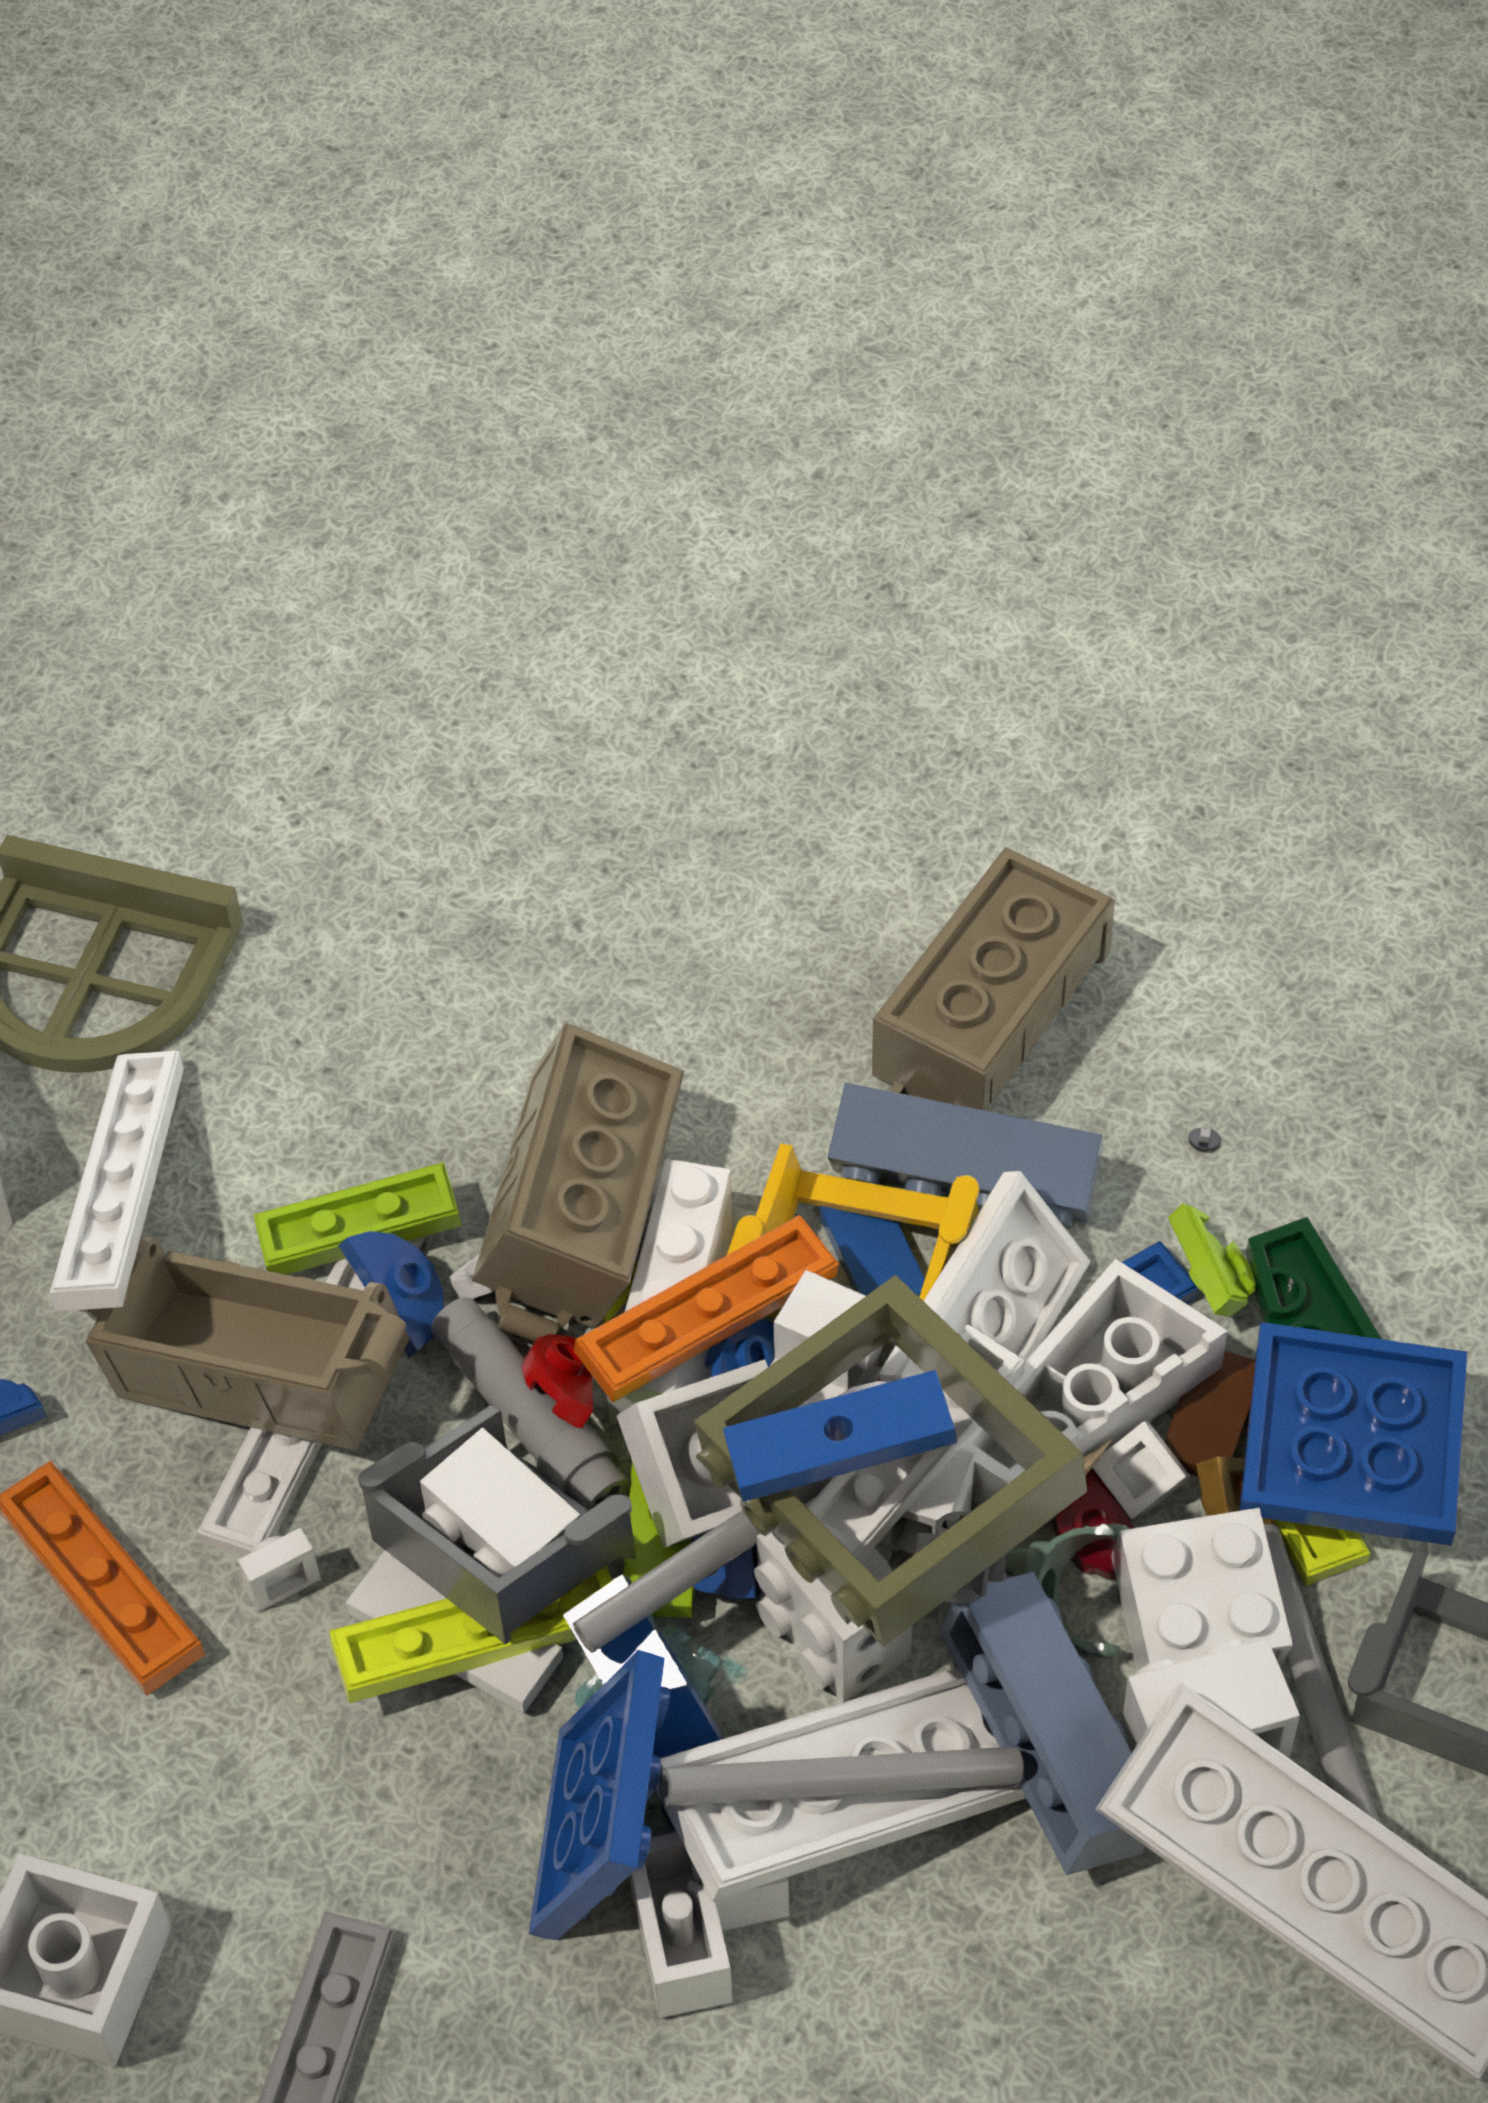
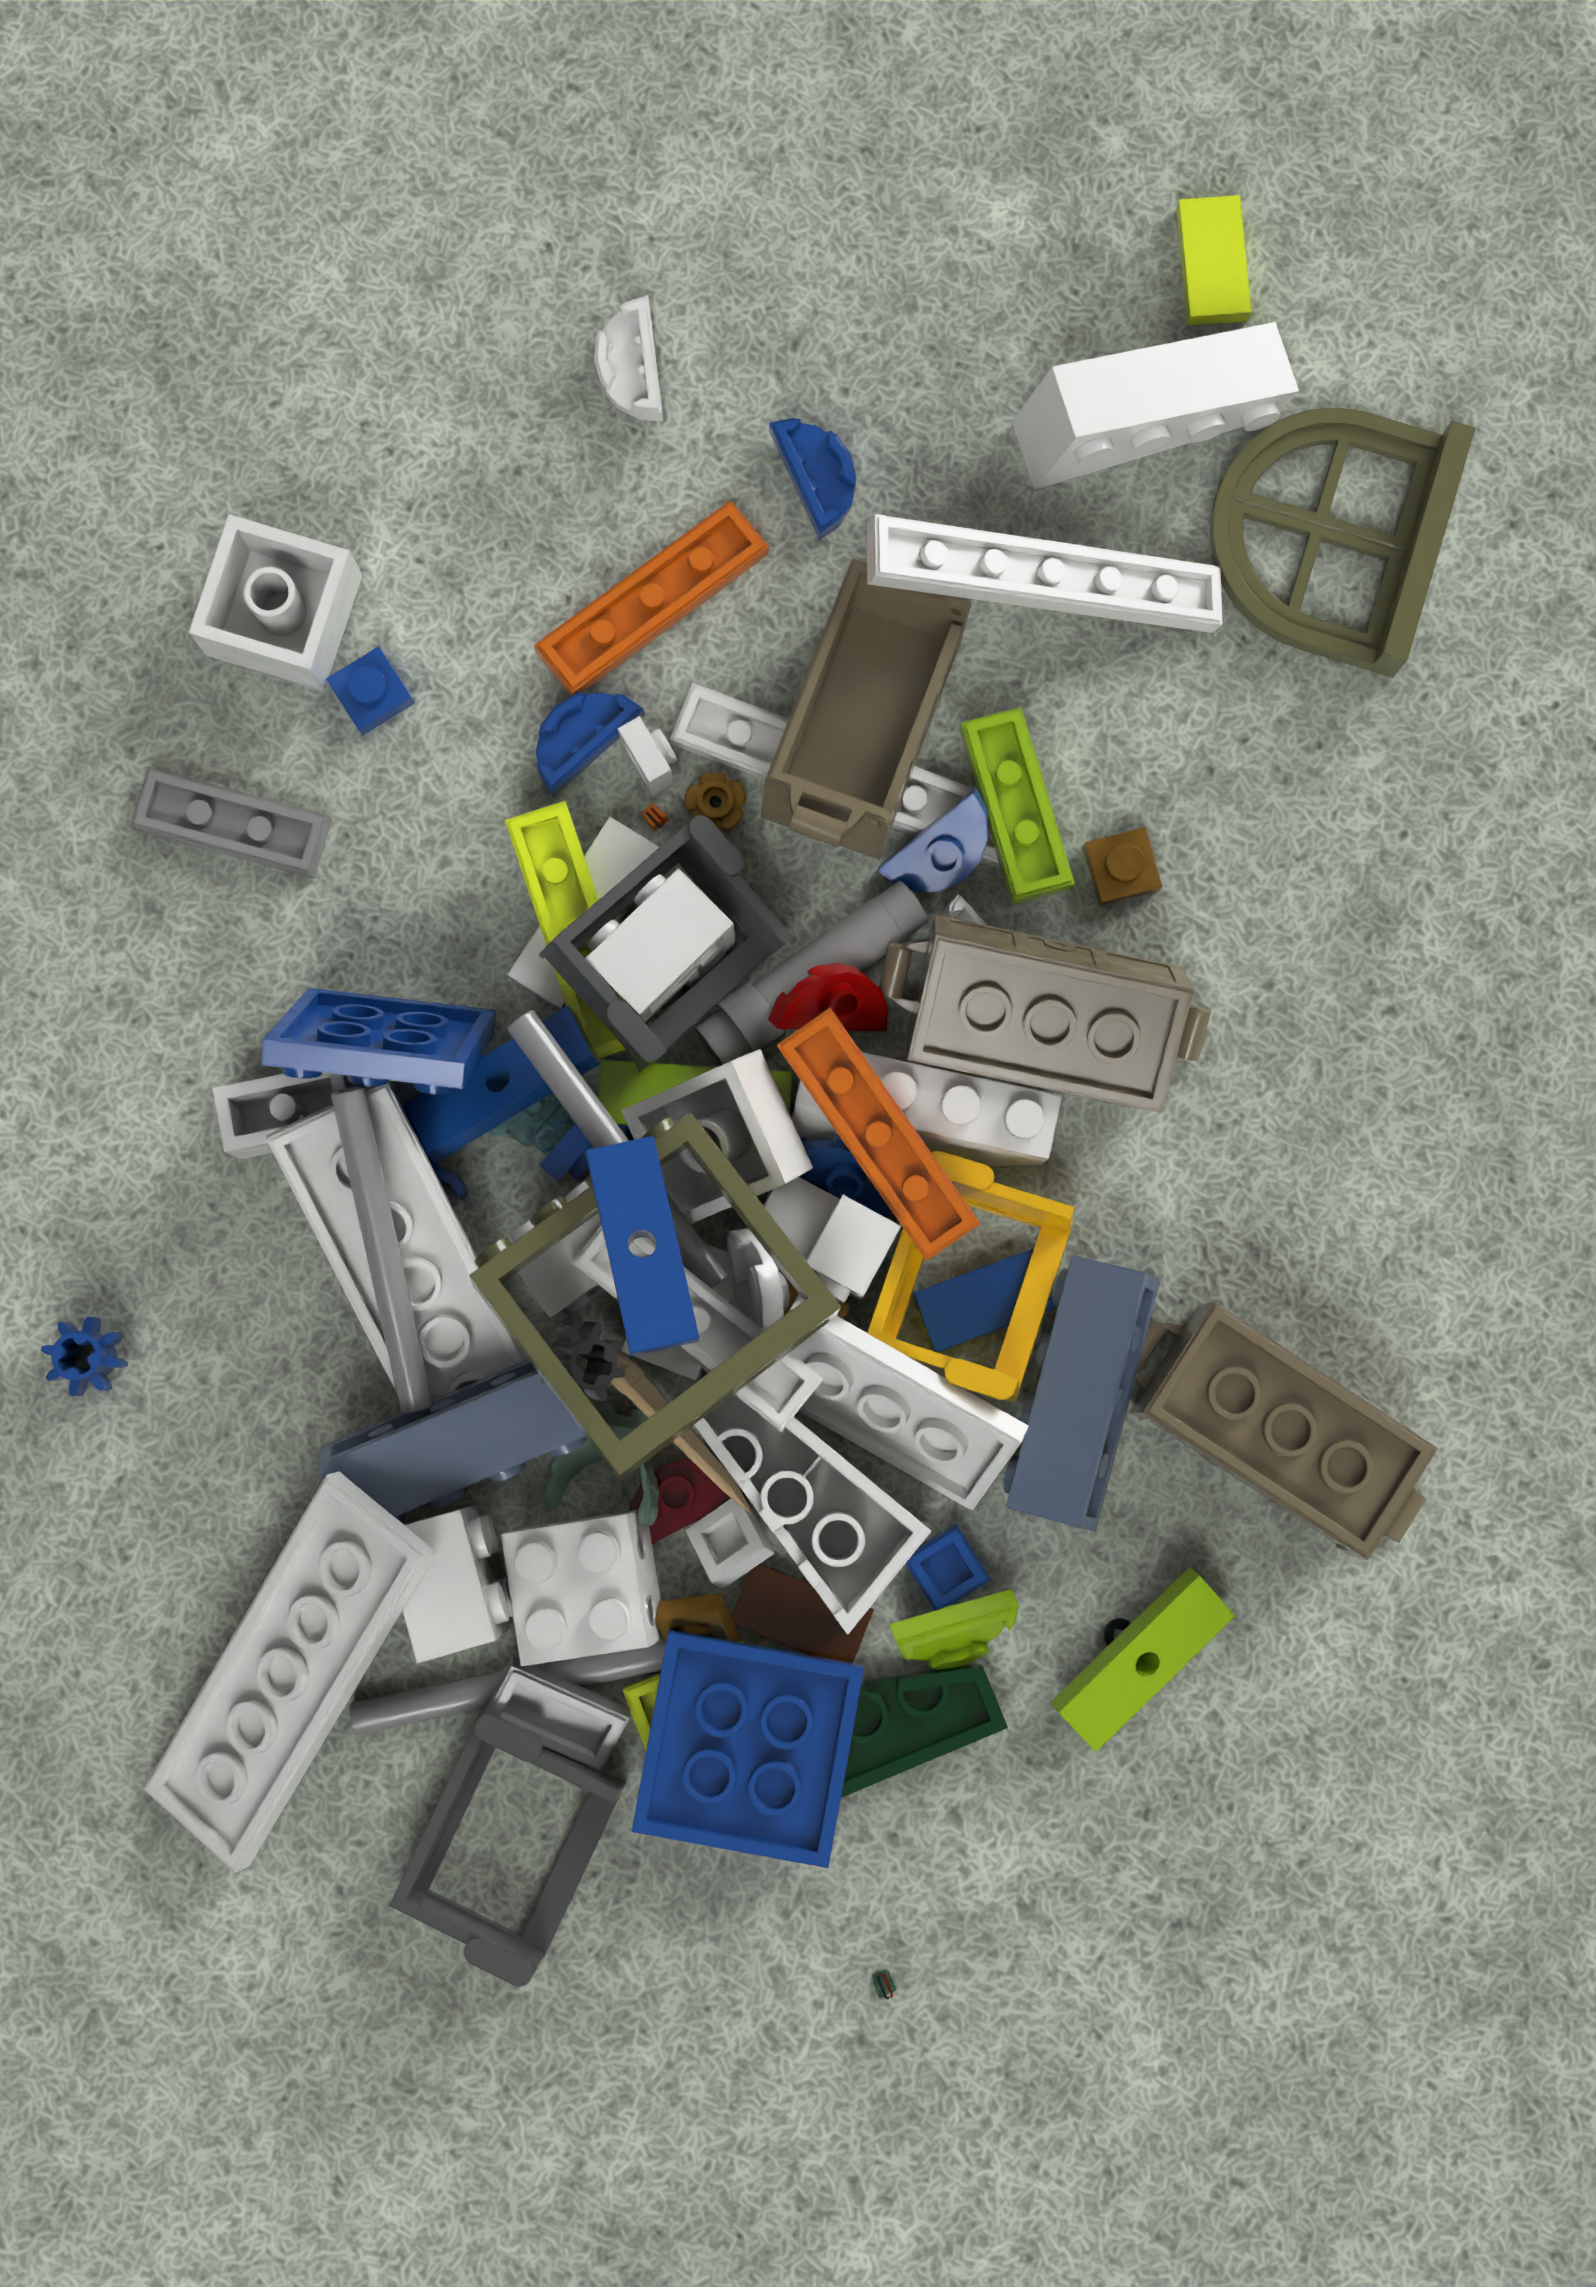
camera: 85 degrees right, 30 degrees up
(179, 1871) = (370, 690): none -> blue plate
(248, 1645) = (579, 733): none -> blue plate
(339, 1523) = (717, 785): none -> pearl gold plate
(345, 1575) = (654, 817): none -> orange piece
(423, 1137) = (1122, 866): none -> pearl gold plate
(725, 1631) = (568, 1156): none -> blue plate
(1227, 1109) = (1142, 1659): none -> lime tile
(1335, 1631) = (559, 1713): none -> light grey tile

